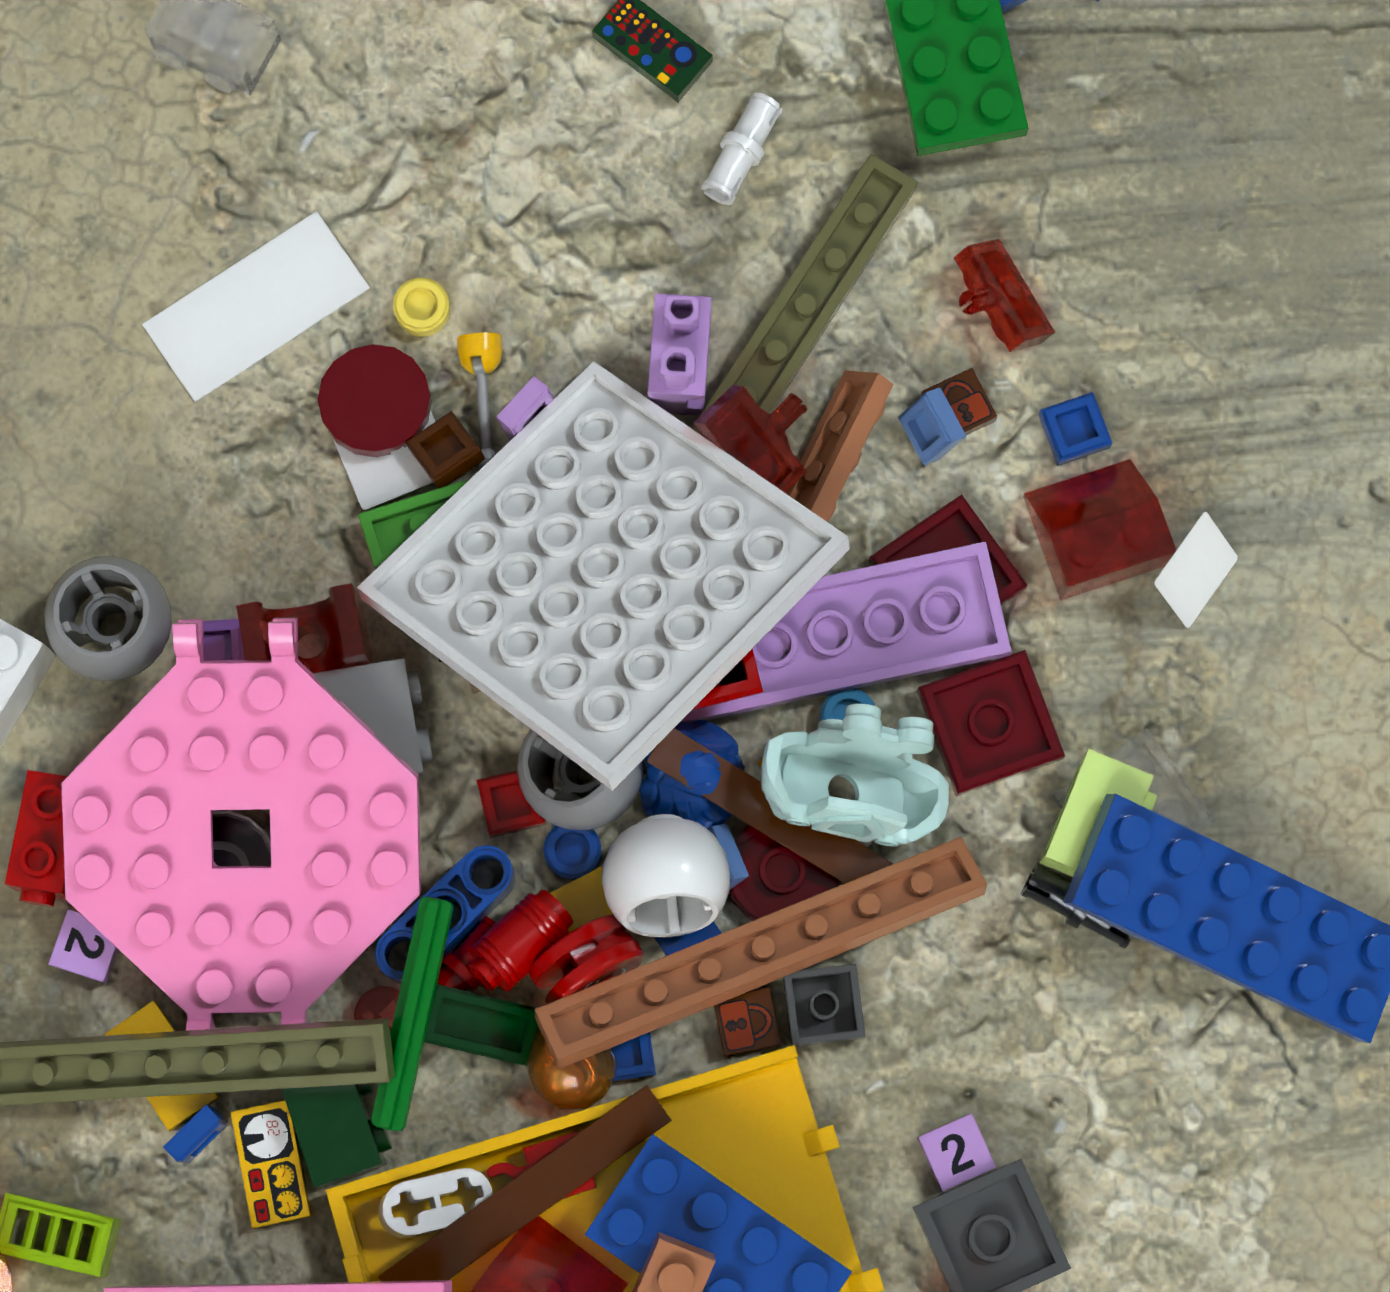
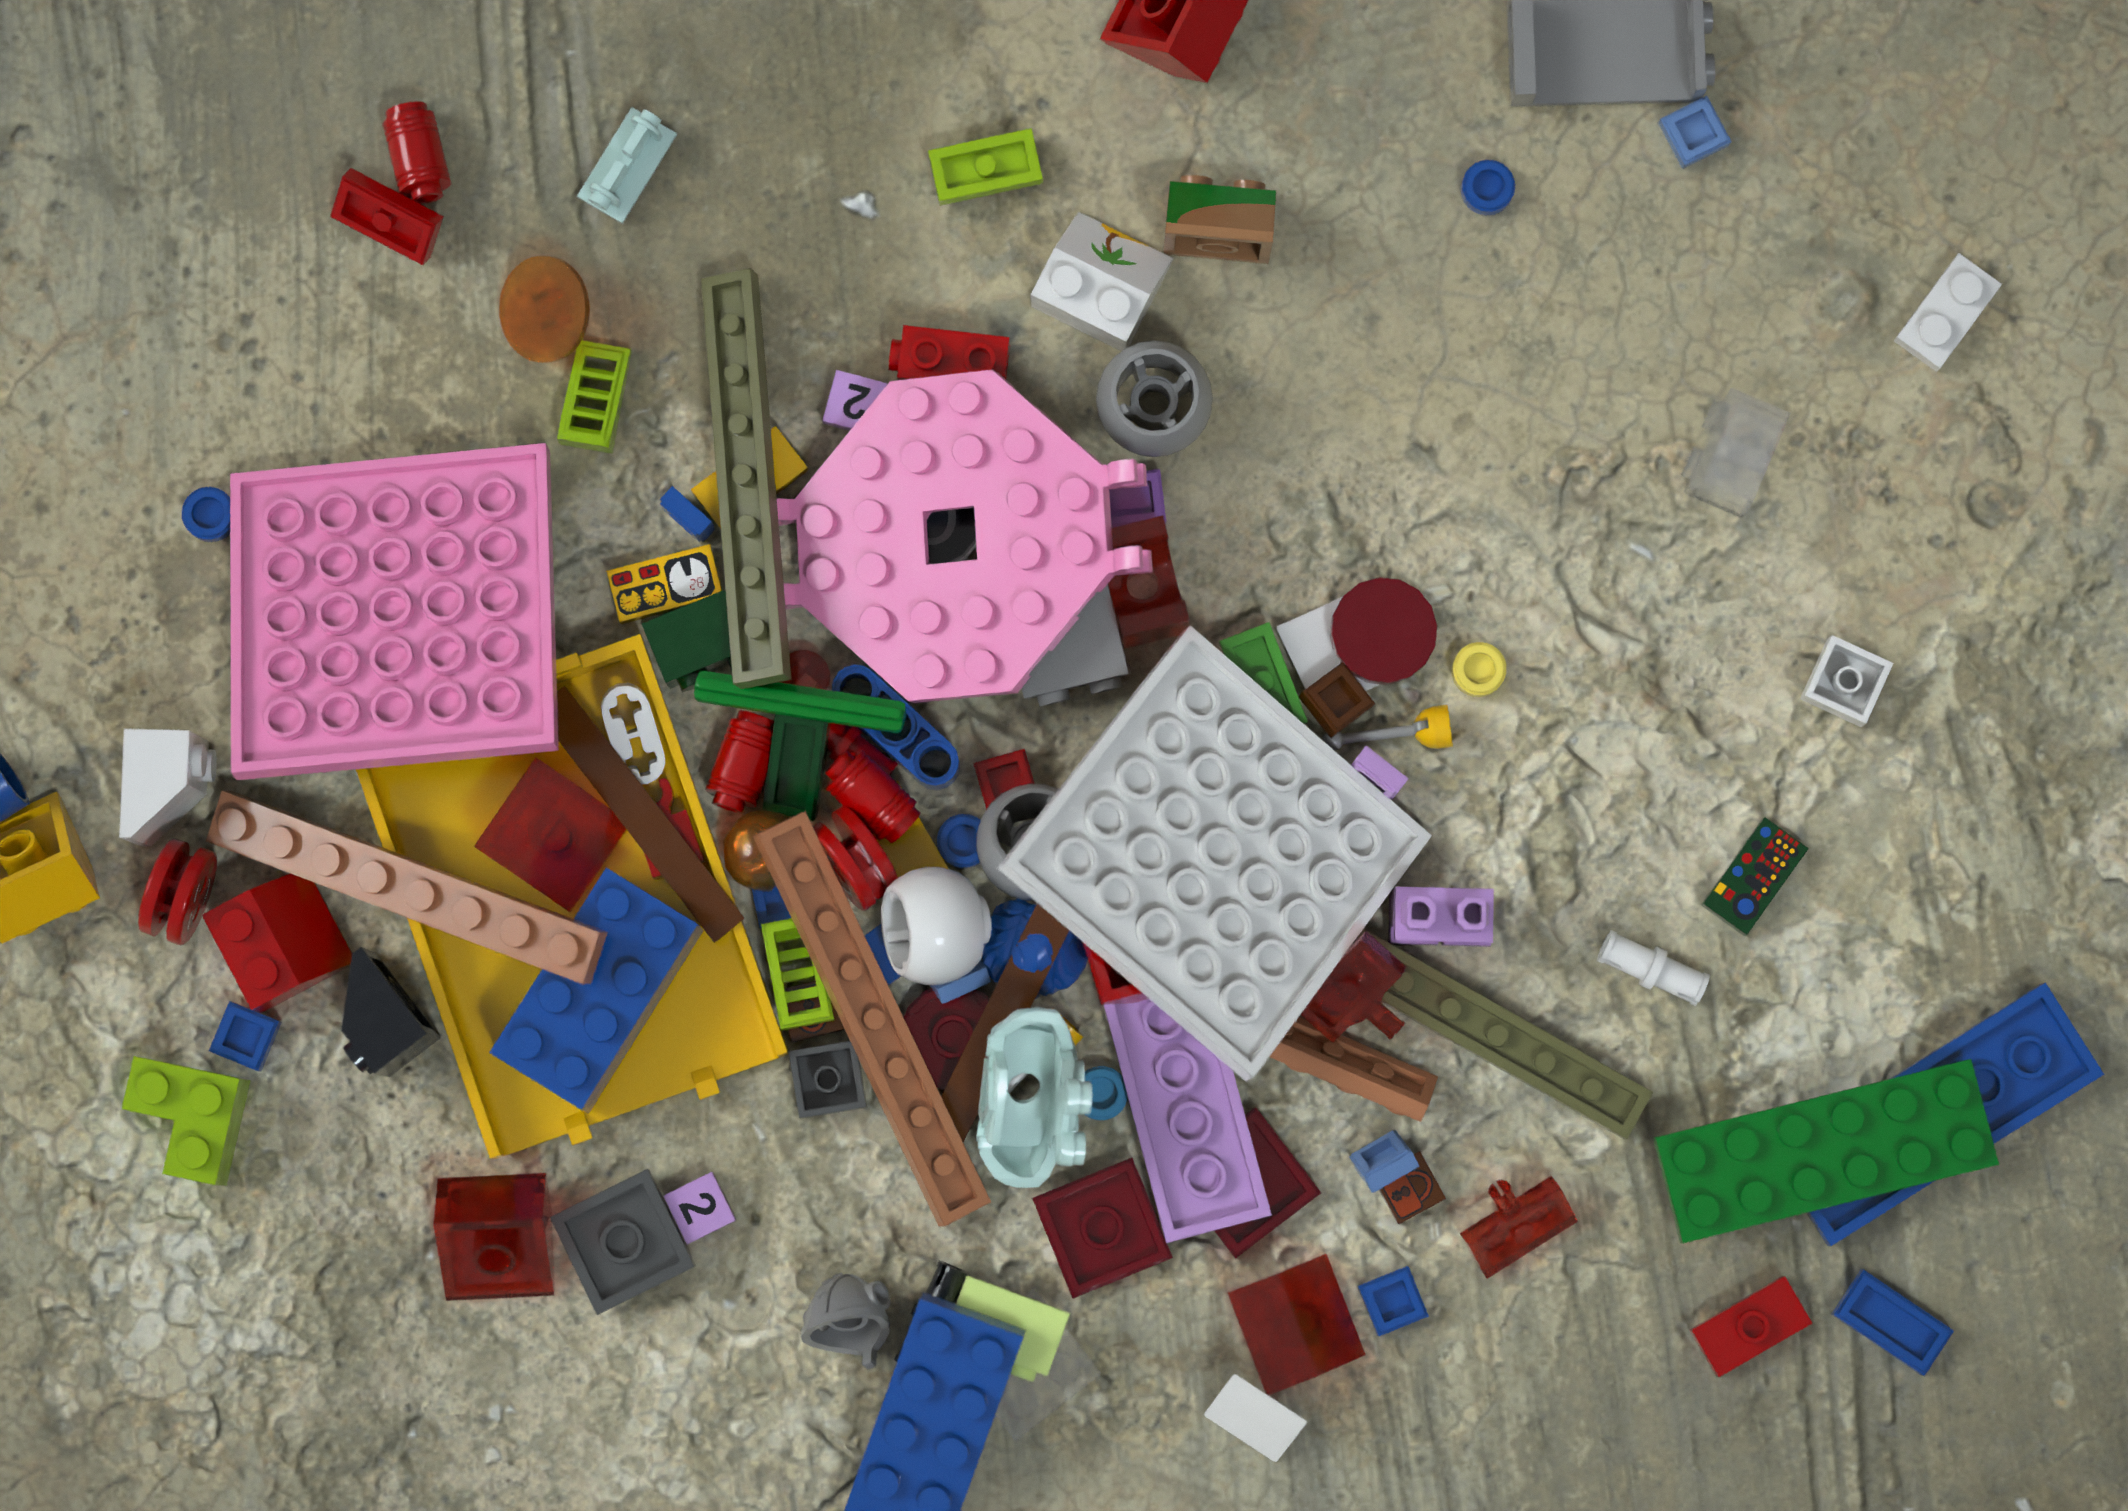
camera: 90 degrees right, 5 degrees up
(255, 306) = (1472, 513): white sticker -> none
(473, 1084) = (741, 762): none -> red head
(660, 1043) = (784, 931): none -> lime slope
(1080, 992) = (848, 1317): none -> light grey helmet
(1110, 76) = (1750, 1326): none -> red plate

